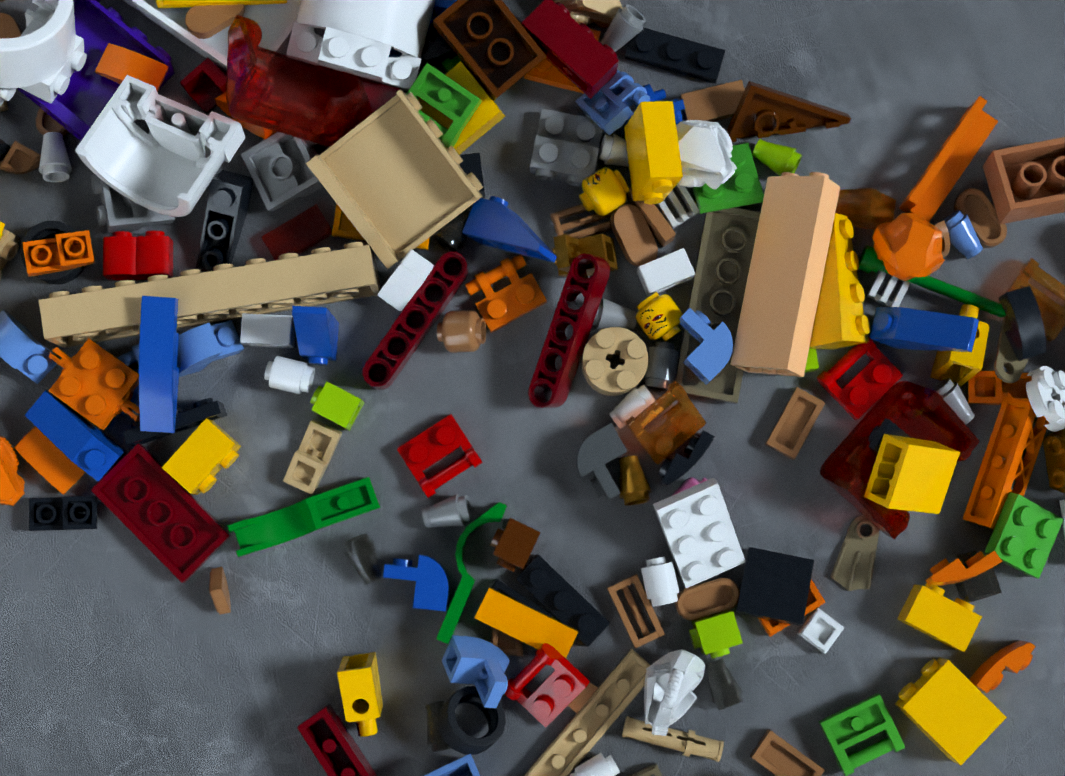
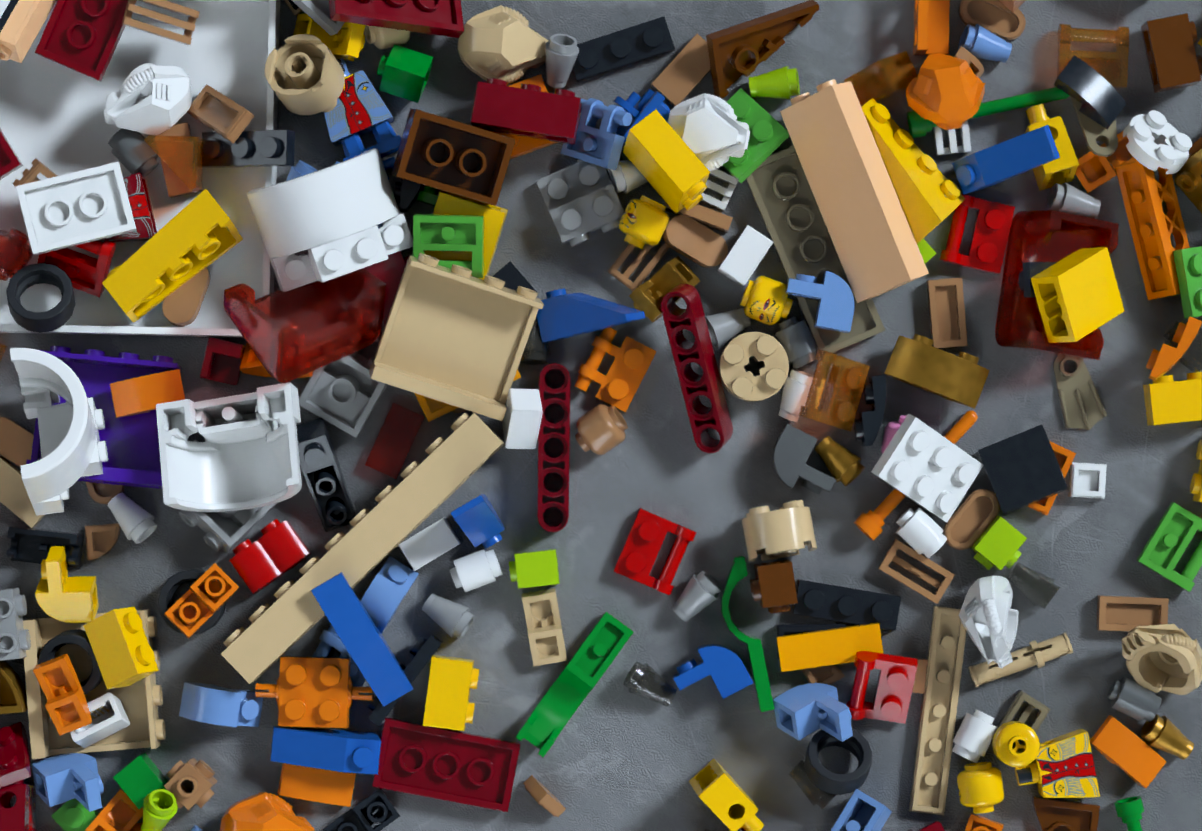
camera: 30 degrees left, 5 degrees up
(245, 398) = (450, 616): none -> light grey cone
(547, 503) = (779, 531): none -> tan brick
(625, 548) = (872, 521): none -> orange piece
(758, 461) = (937, 371): none -> pearl gold brick

